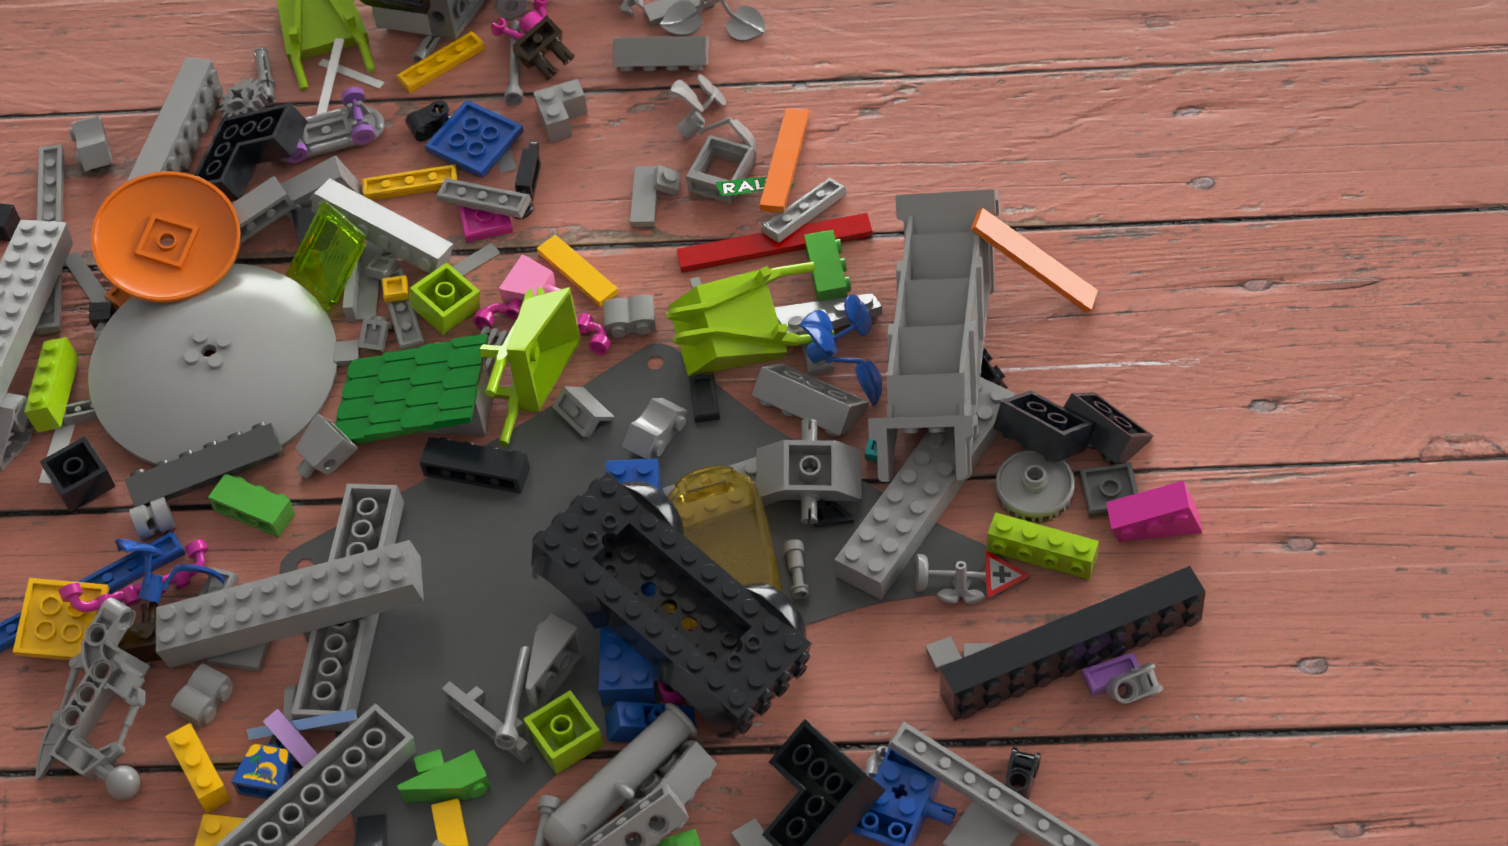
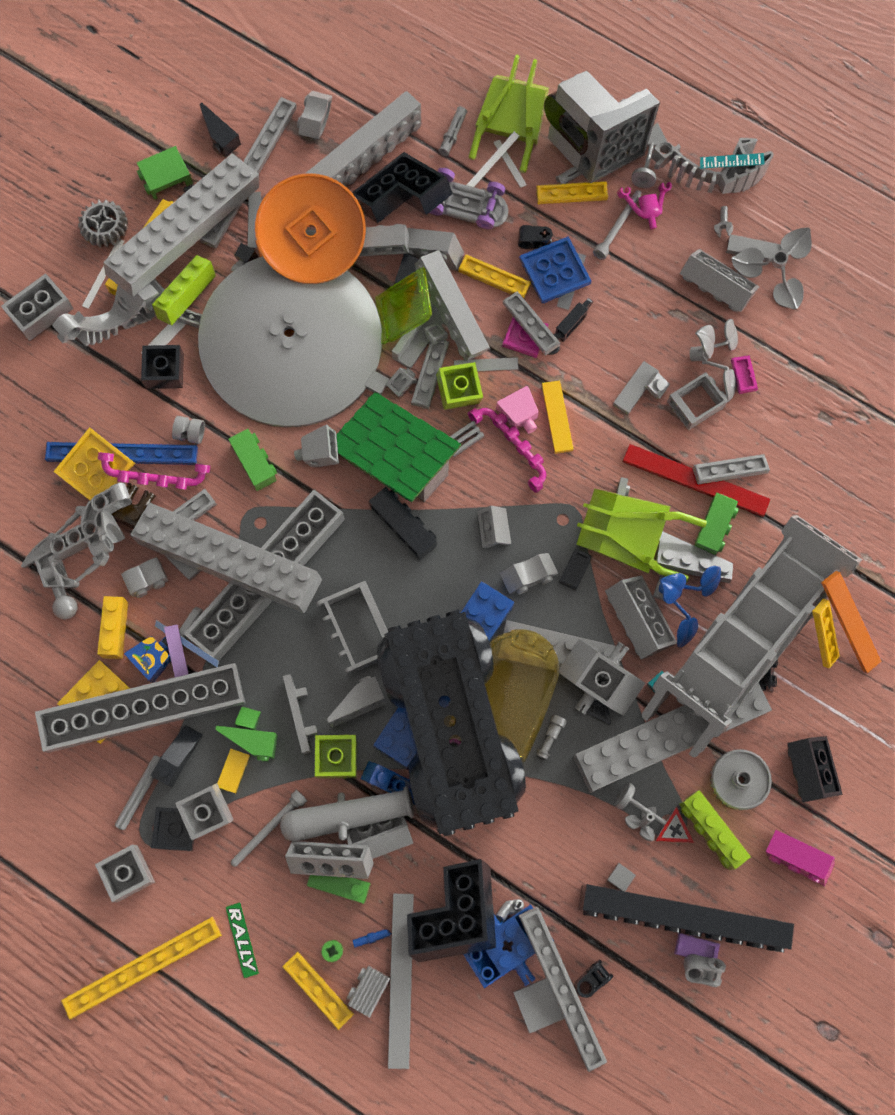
camera: 25 degrees right, 20 degrees up
(152, 584) = (158, 481): blue plant -> none
(205, 466) = (240, 414): dark grey brick -> none
(243, 98) = (427, 143): light grey gear -> none
(395, 288) = (434, 356): yellow tile -> none
(489, 559) = (364, 589): none -> light grey hinge
(506, 735) = (299, 739): light grey piece -> none
(537, 43) = (642, 222): dark brown brick -> none
(537, 353) = (485, 470): lime piece -> none
(557, 106) = (621, 280): light grey brick -> none
(629, 316) = (567, 476): light grey brick -> none
(742, 186) = (710, 429): sticker -> none
(753, 119) = (744, 374): none -> dark pink plate
(784, 160) = (743, 422): orange tile -> none
(942, 652) = (602, 860): light grey tile -> none
(1016, 287) = (826, 633): none -> yellow tile
(1042, 426) = (773, 747): black brick -> none
(1105, 485) = (786, 814): dark grey tile -> none

